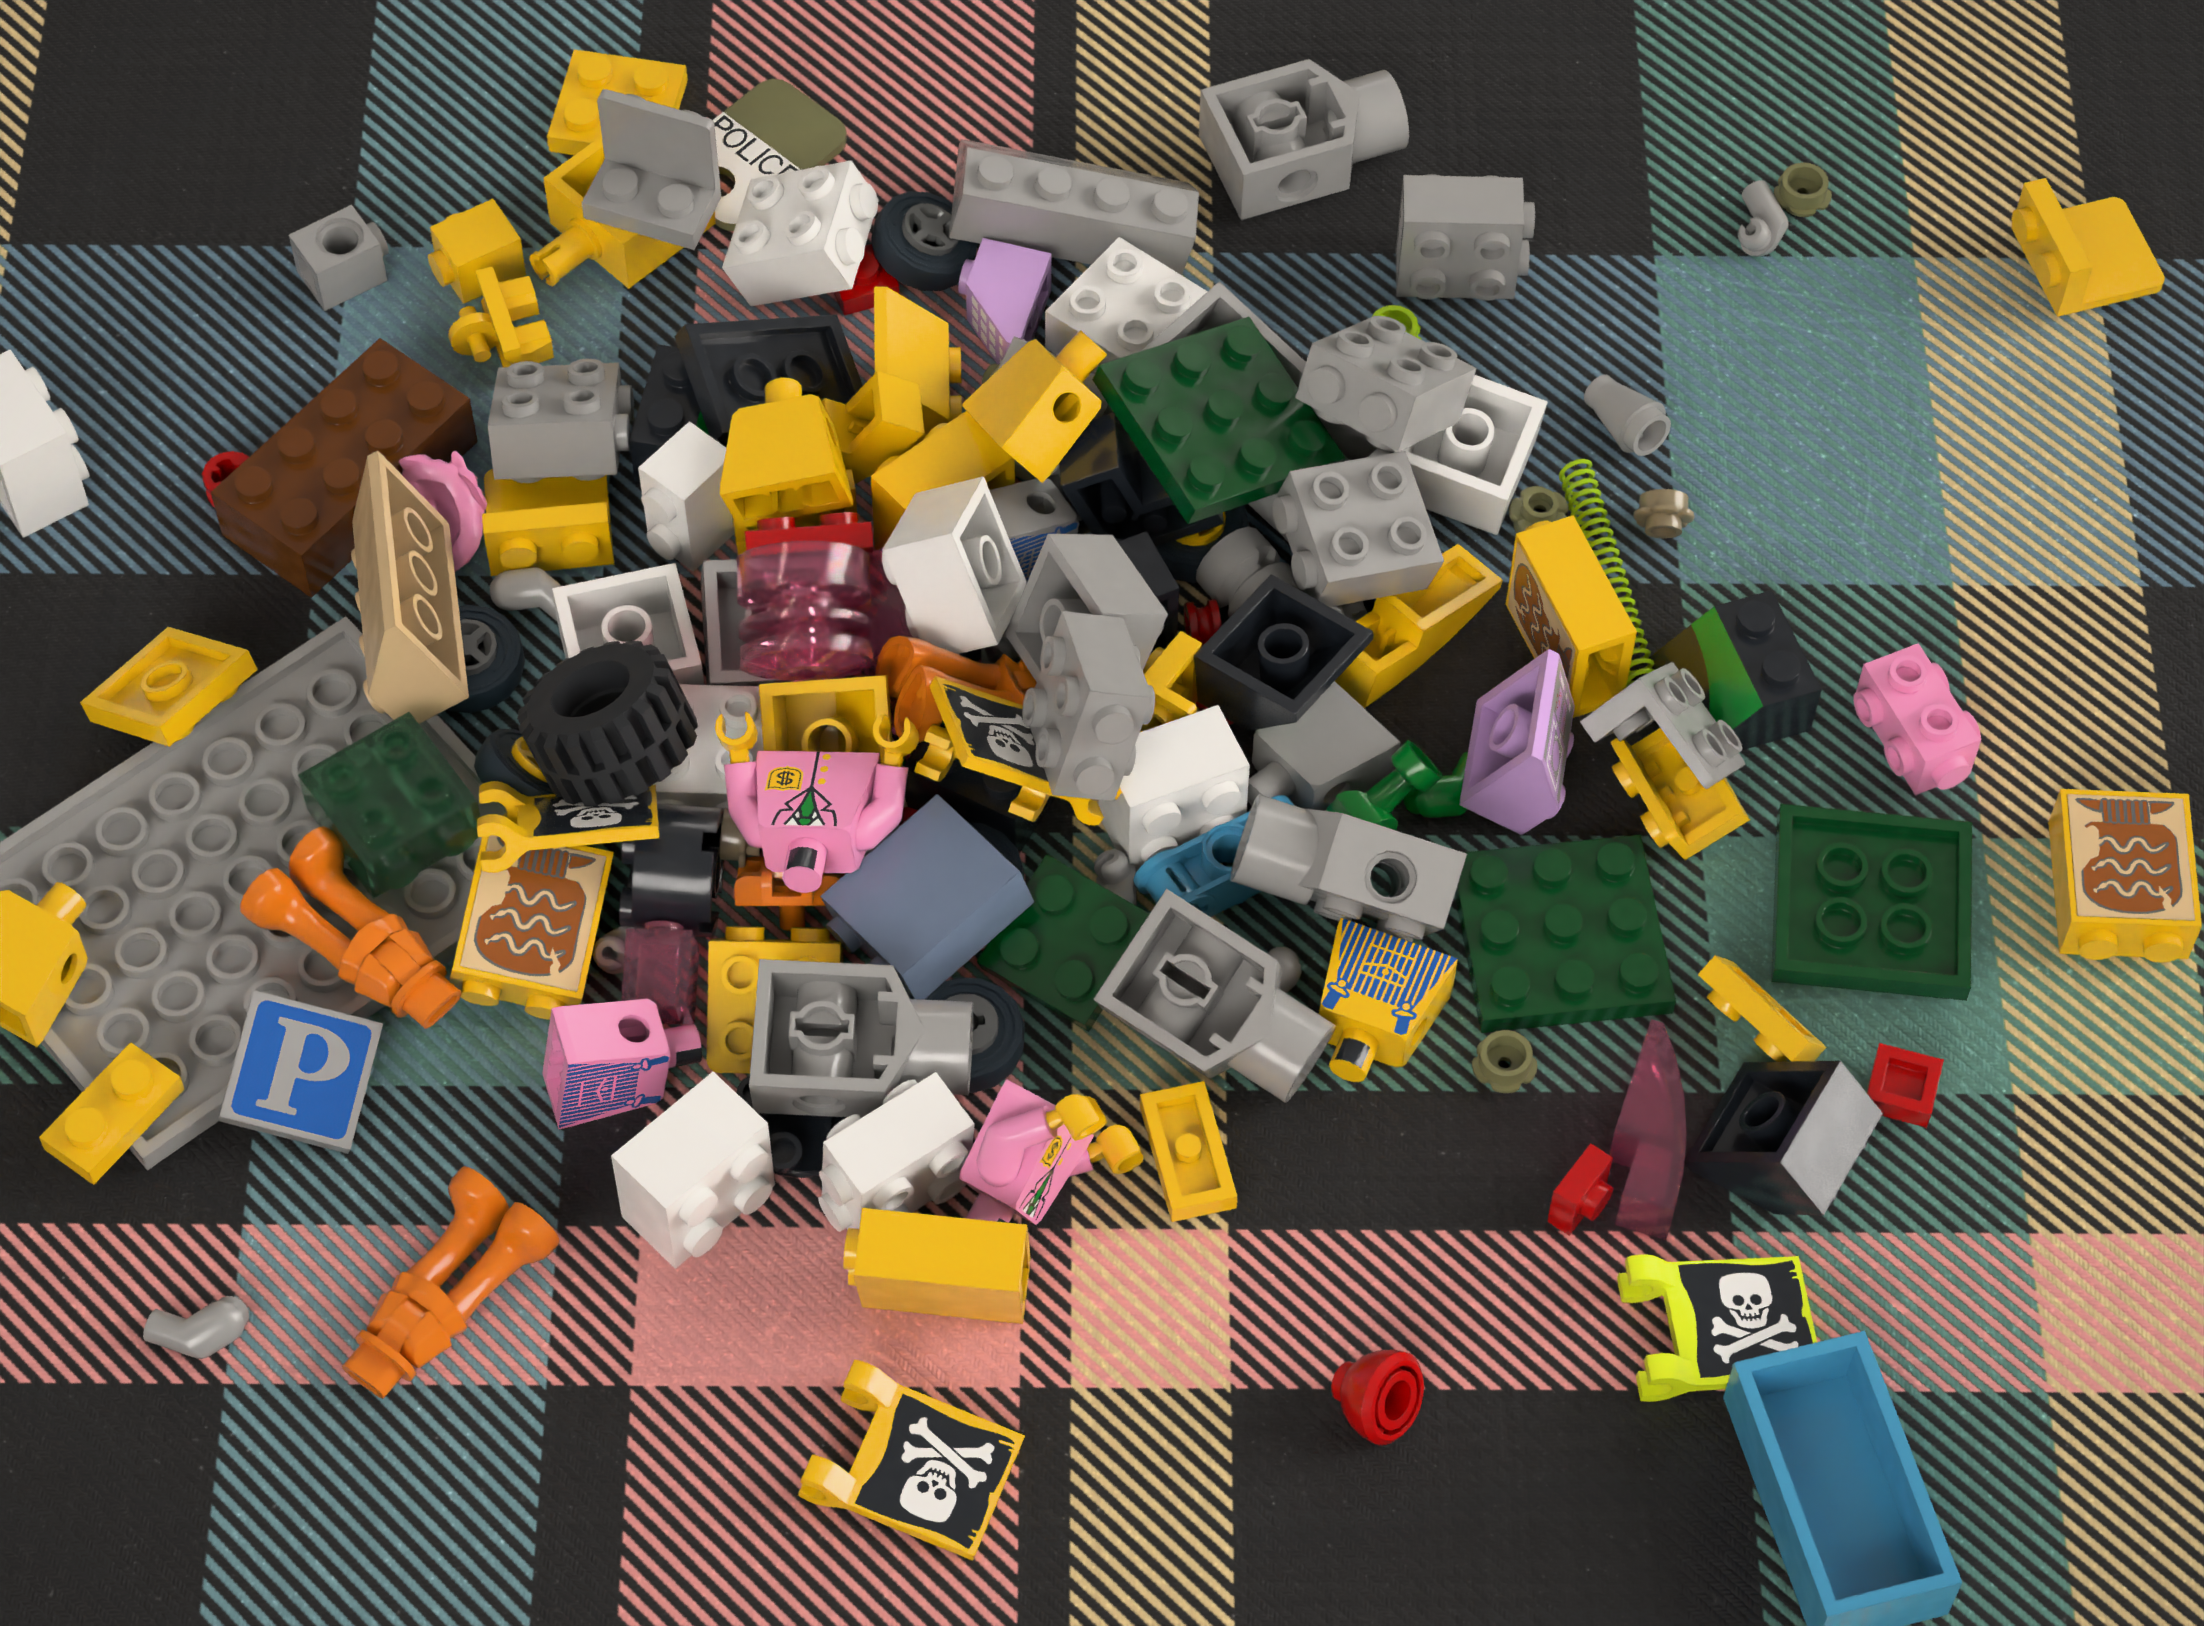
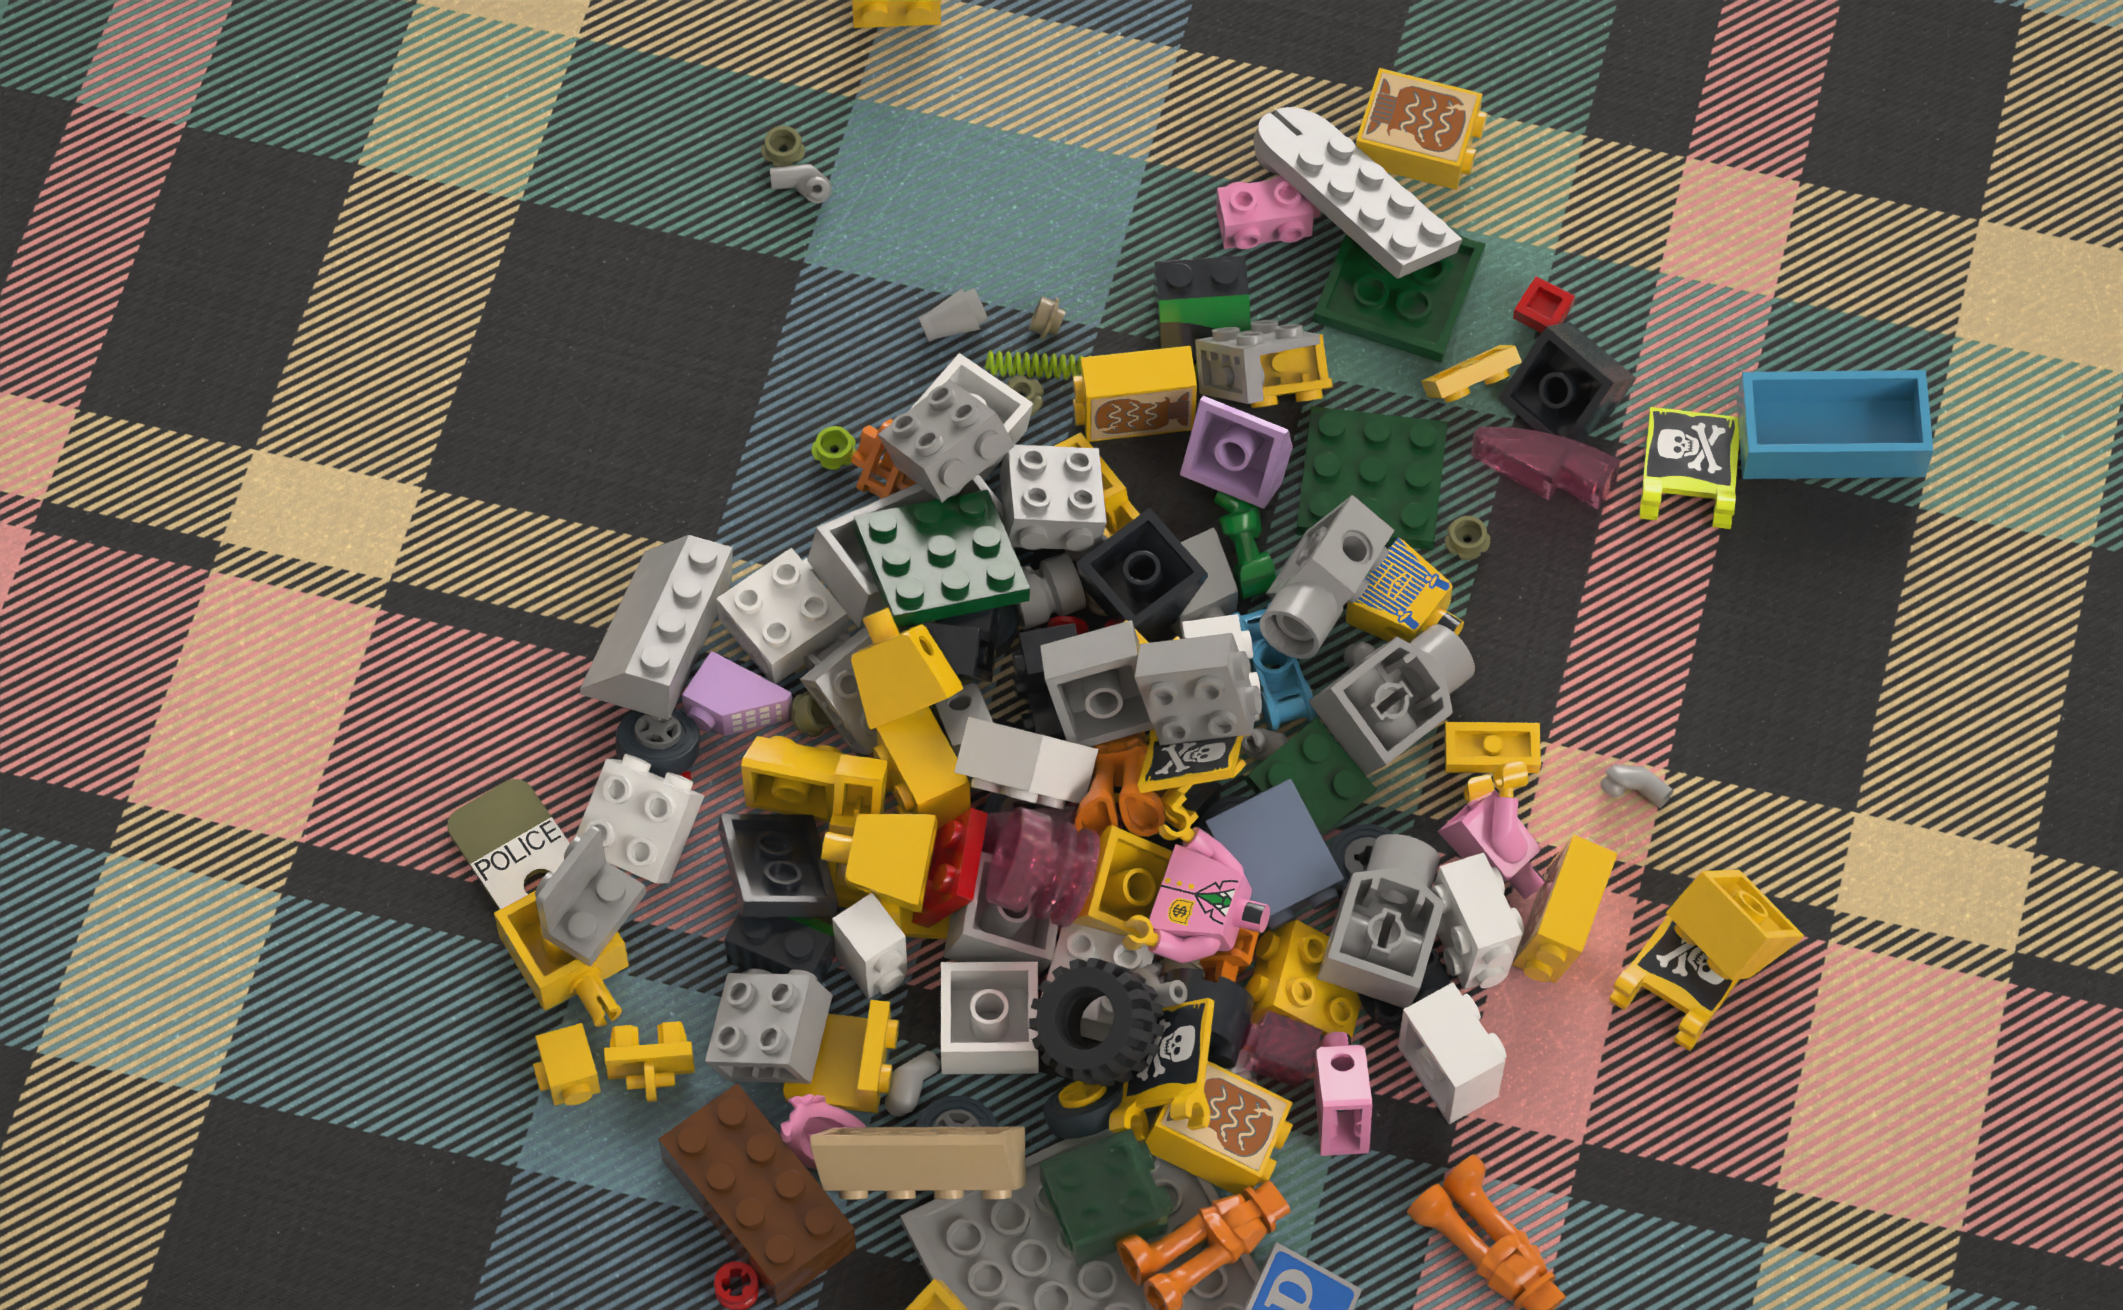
camera: 75 degrees left, 5 degrees up
(339, 256) = (546, 1186): light grey brick -> none
(577, 113) = (440, 941): yellow plate -> none
(689, 781) = (1168, 993): none -> light grey arm
(992, 1500) = (1732, 924): none -> yellow slope
(1196, 1341) = (1637, 778): none -> light grey arm
(1297, 132) = (639, 458): light grey brick -> none
(1380, 1394) = (1701, 676): red brick -> none
(1462, 237) = (779, 373): light grey brick -> none
(1582, 1191) = (1580, 516): red plate -> none
(1975, 800) = (1352, 190): none -> plate

